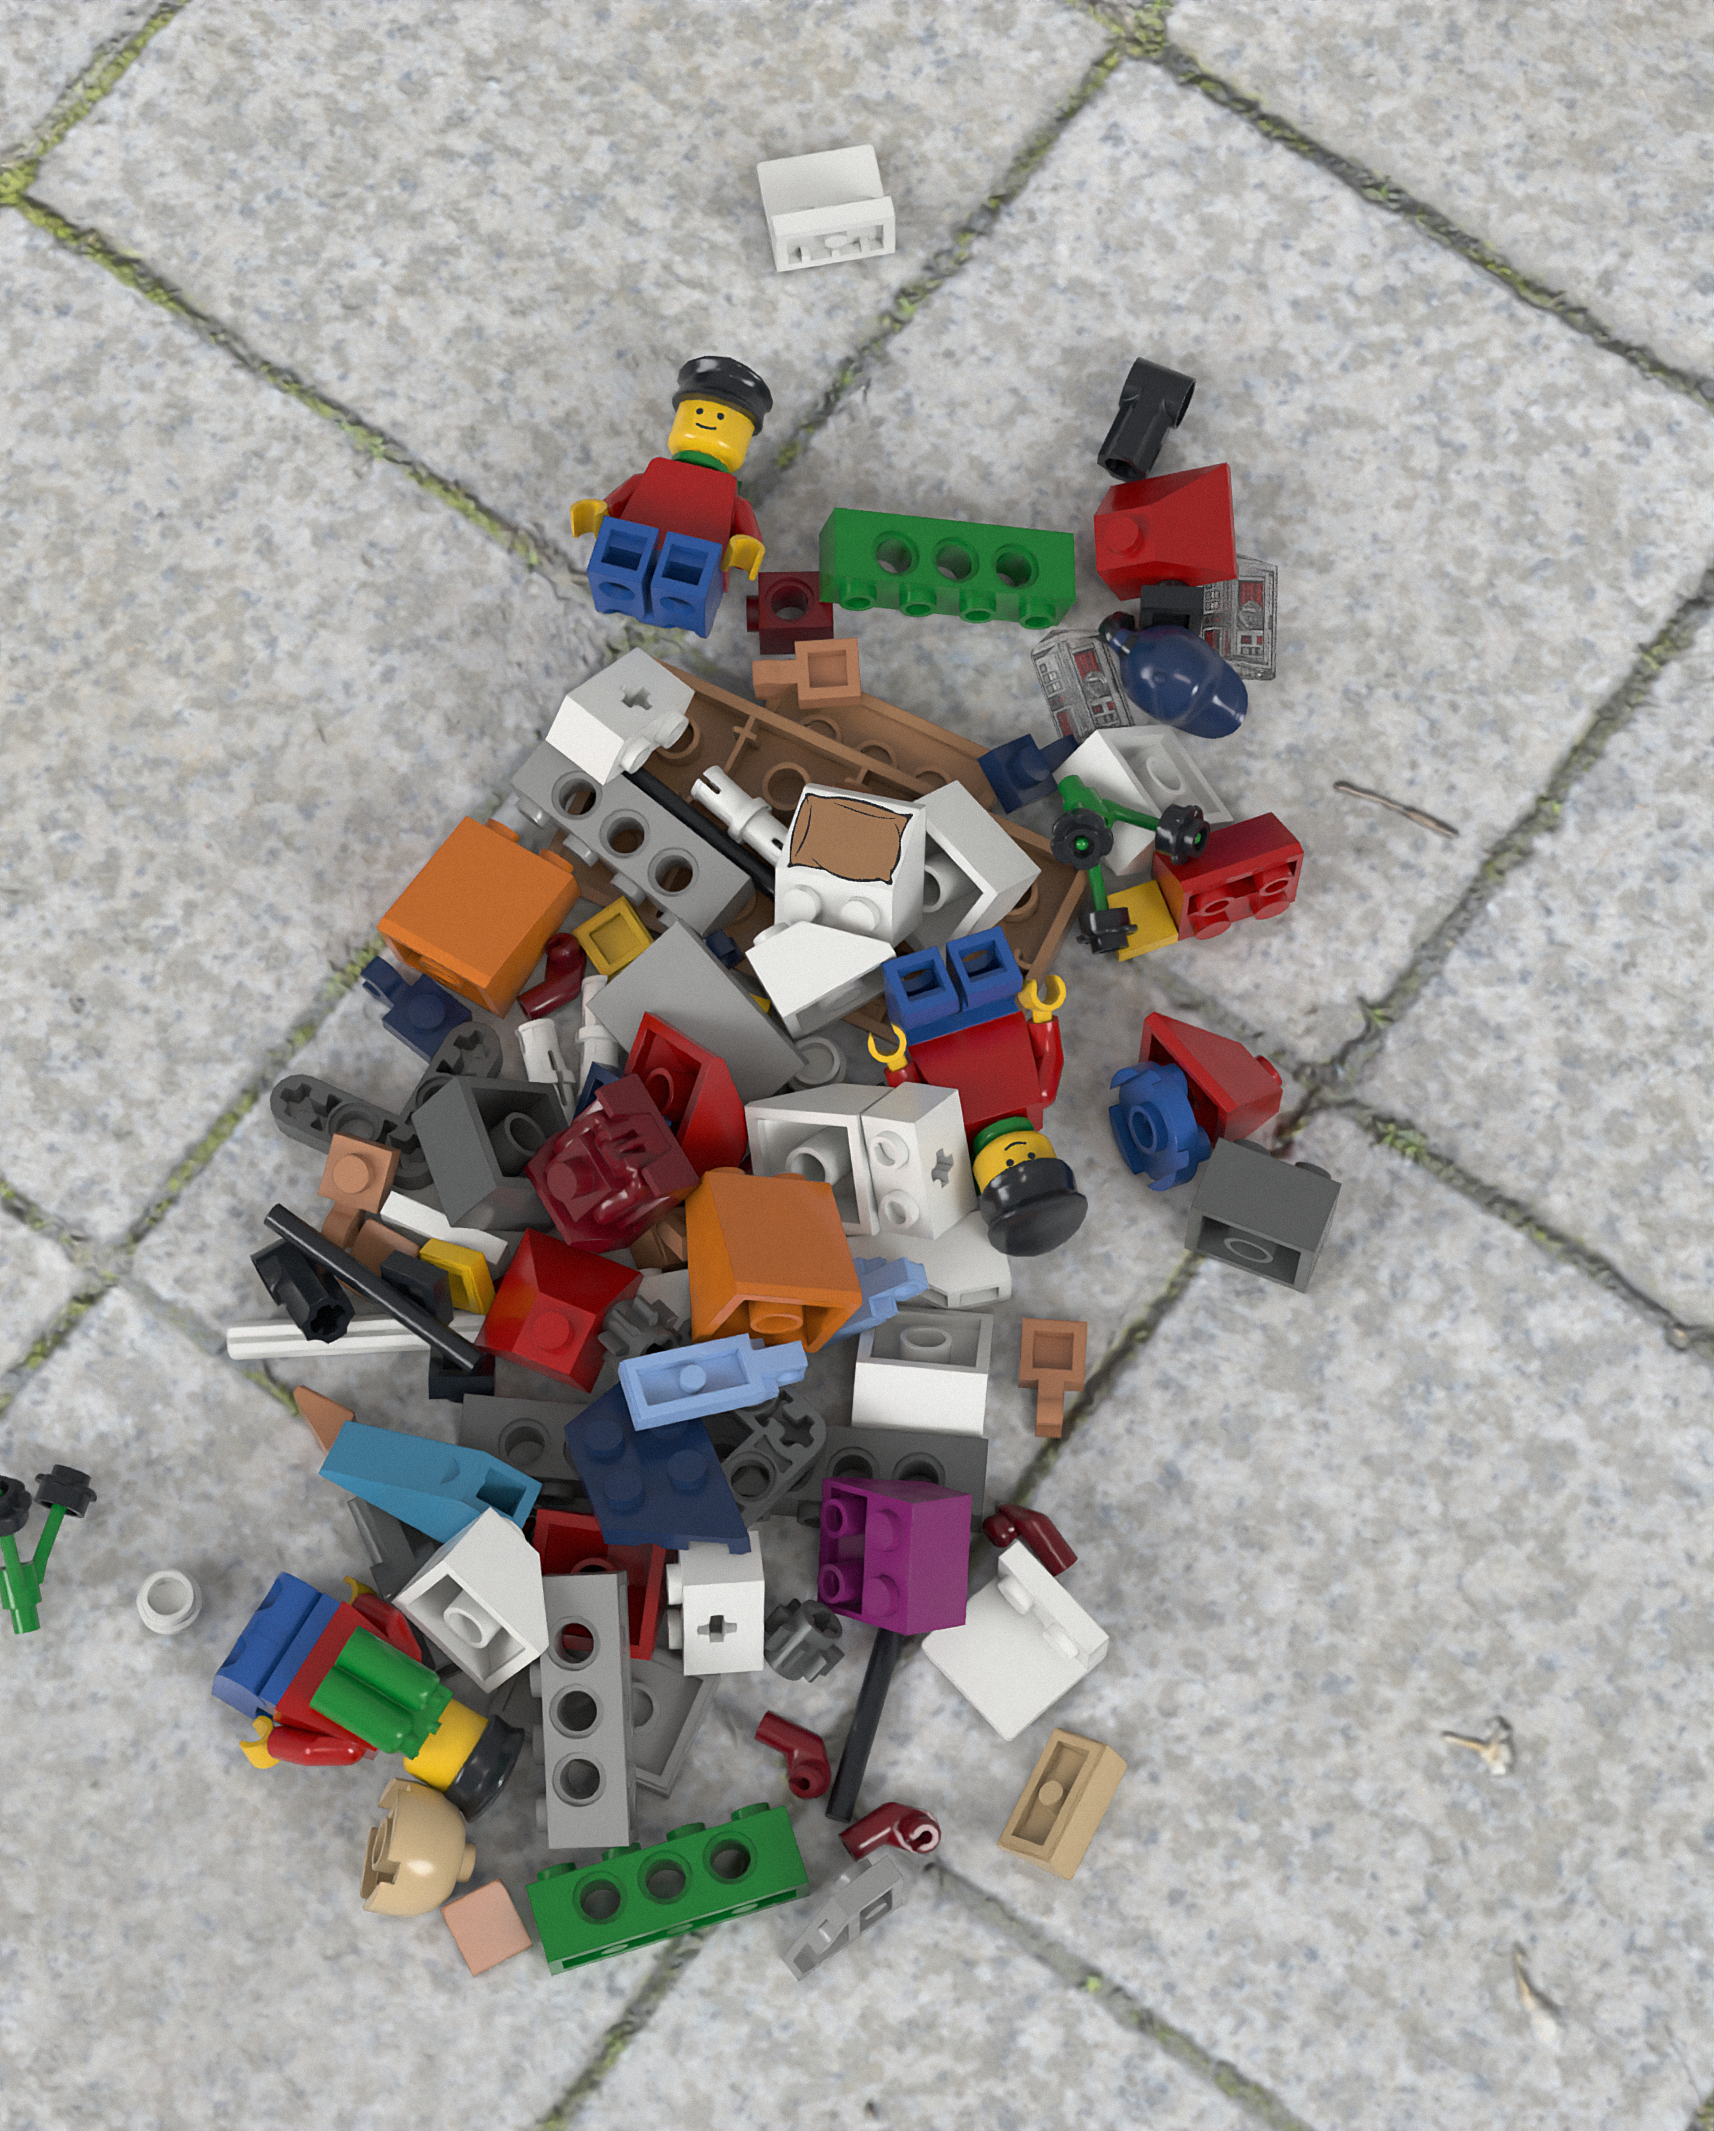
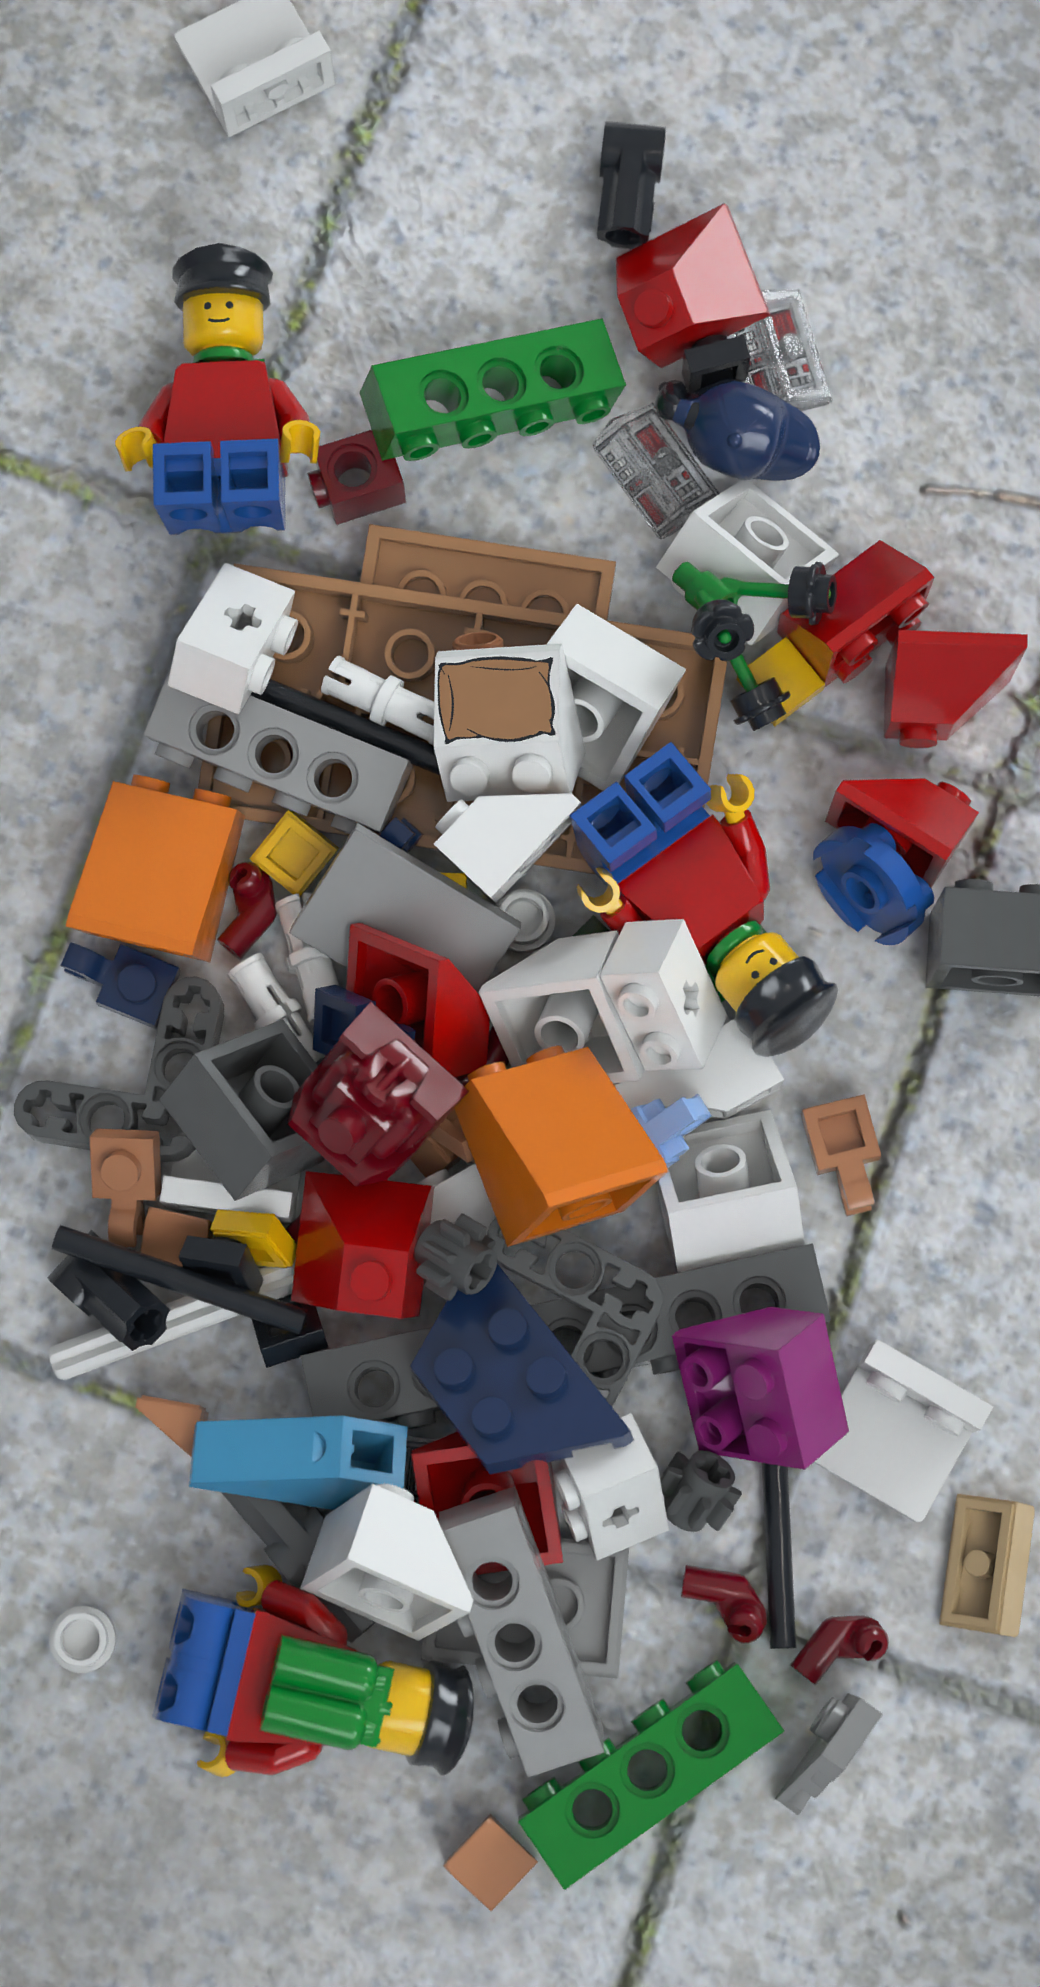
camera: 15 degrees left, 10 degrees up
(415, 1852) = (400, 1819): tan cylinder -> none
(707, 1378) = (535, 1282): light blue hinge -> none
(822, 674) = (408, 531): nougat plate -> none
(1023, 772) = (630, 568): dark blue plate -> none
(1033, 1528) = (880, 1311): dark red arm -> none
(1293, 961) = (944, 680): none -> red slope

